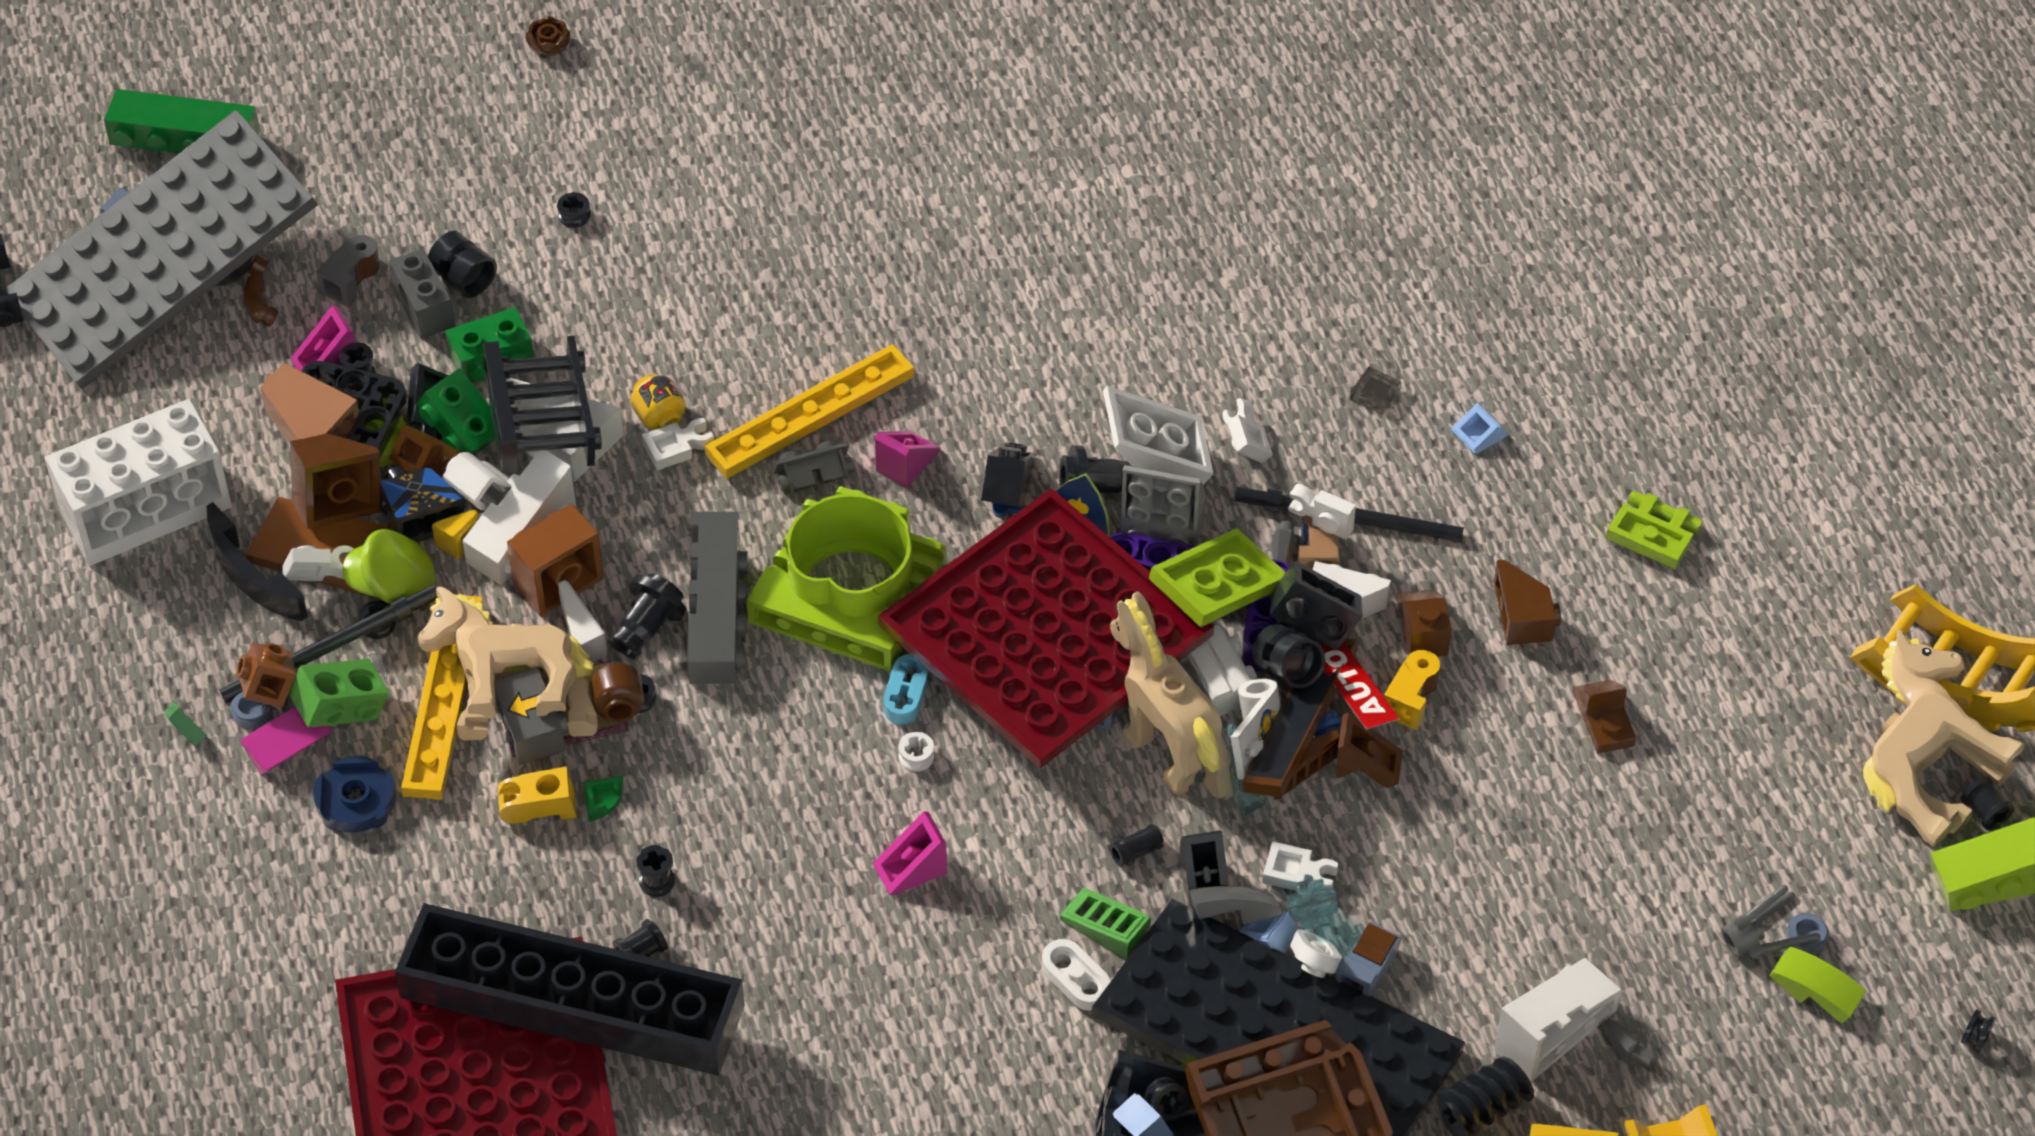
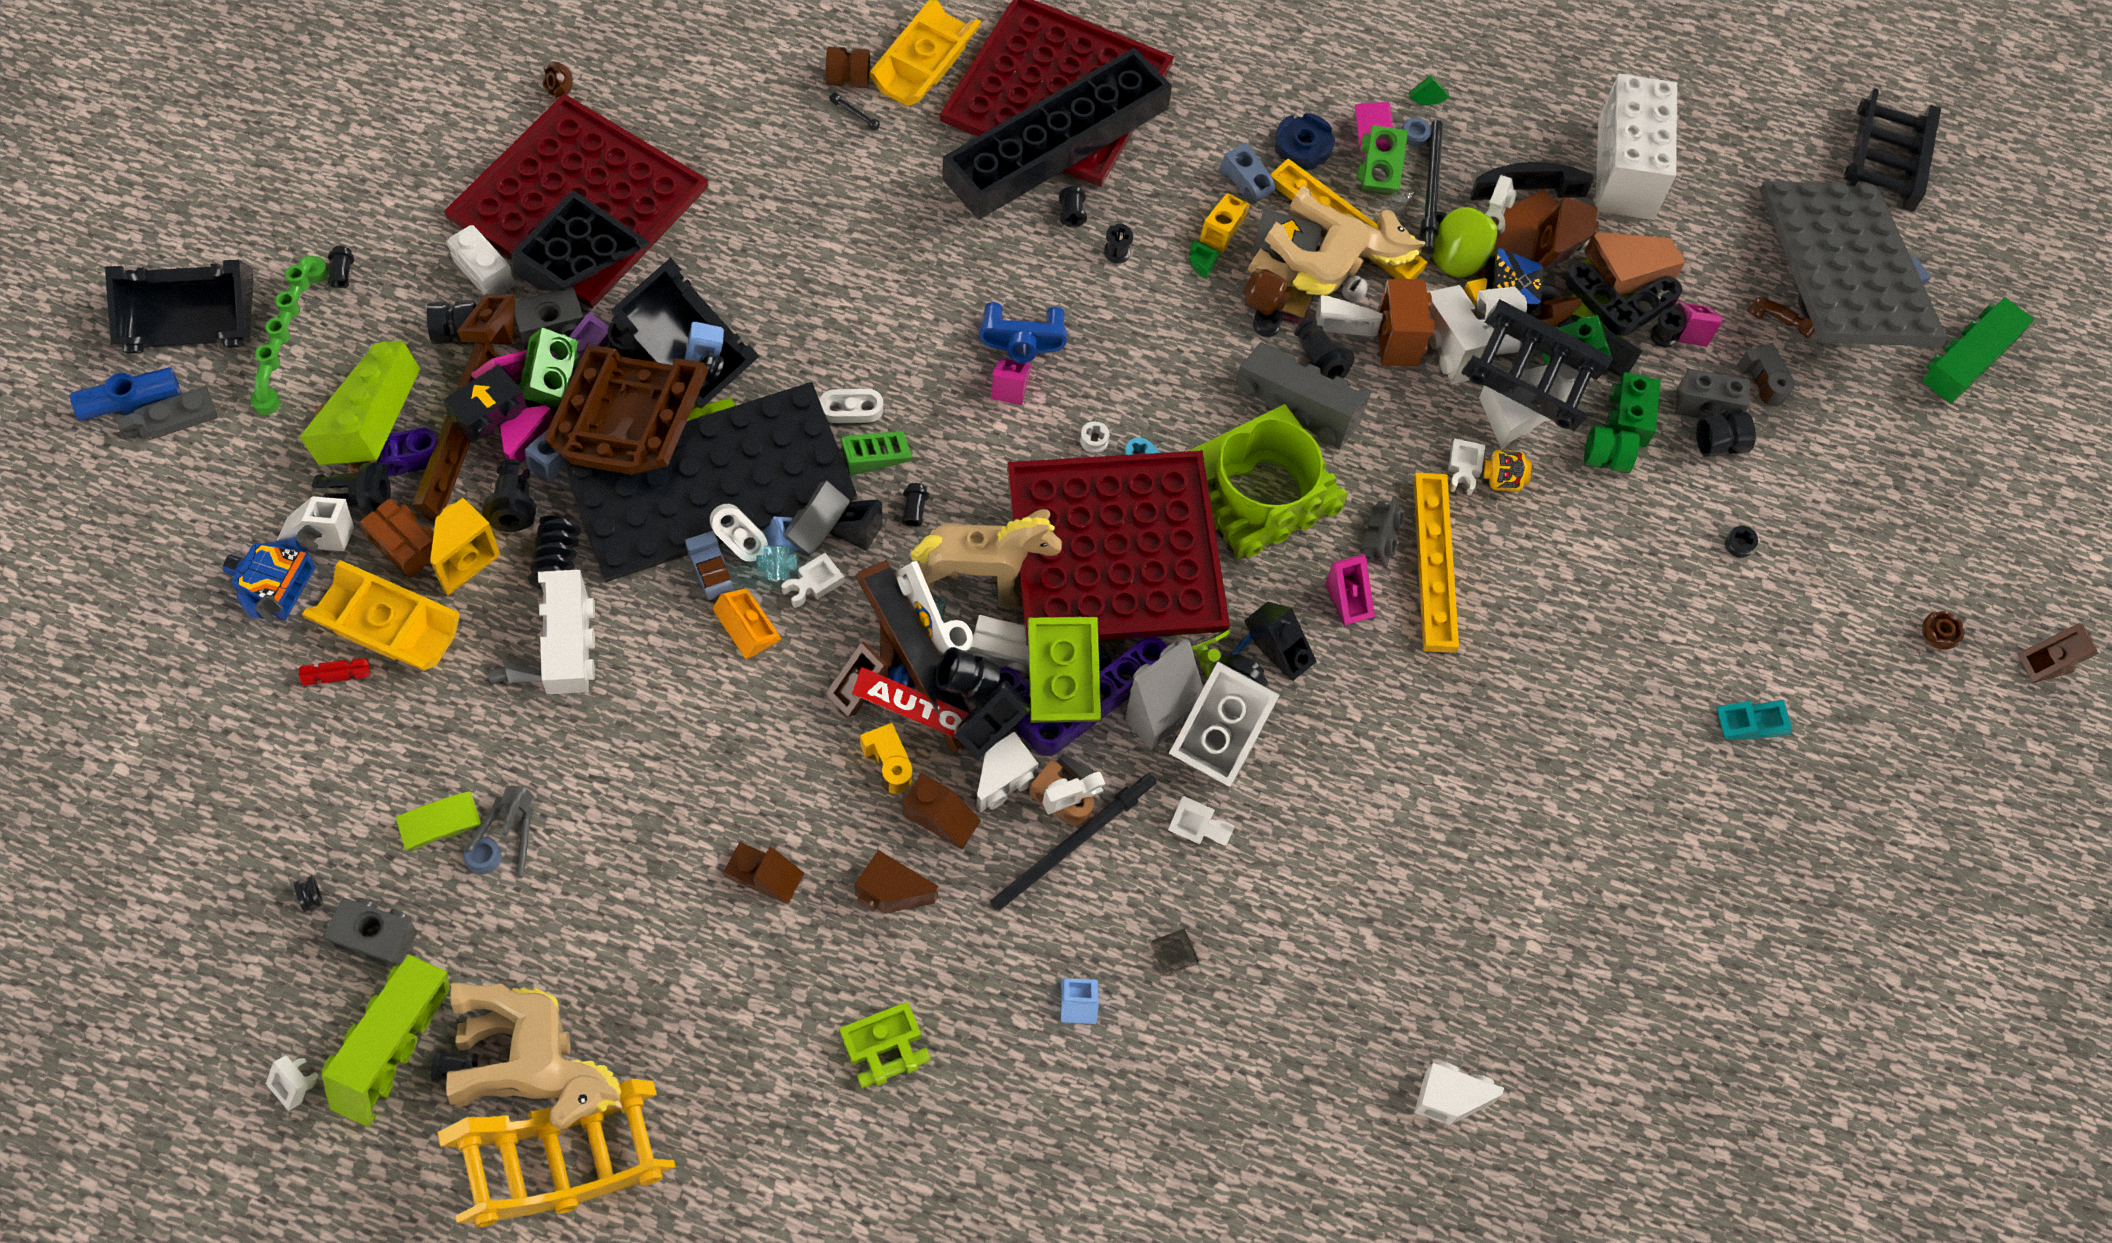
camera: 120 degrees right, 10 degrees up
(266, 673) = (1425, 129): dark orange brick -> none
(452, 816) = (1247, 173): none -> sand blue leg
(550, 330) = (1616, 449): none -> green wheel
(765, 124) = (1755, 721): none -> teal slope
(864, 872) = (1022, 338): none -> blue connector
(1314, 148) = (1451, 1095): none -> white slope
(1390, 896) = (745, 622): none -> light orange slope
(1958, 930) = (354, 918): none -> dark grey brick

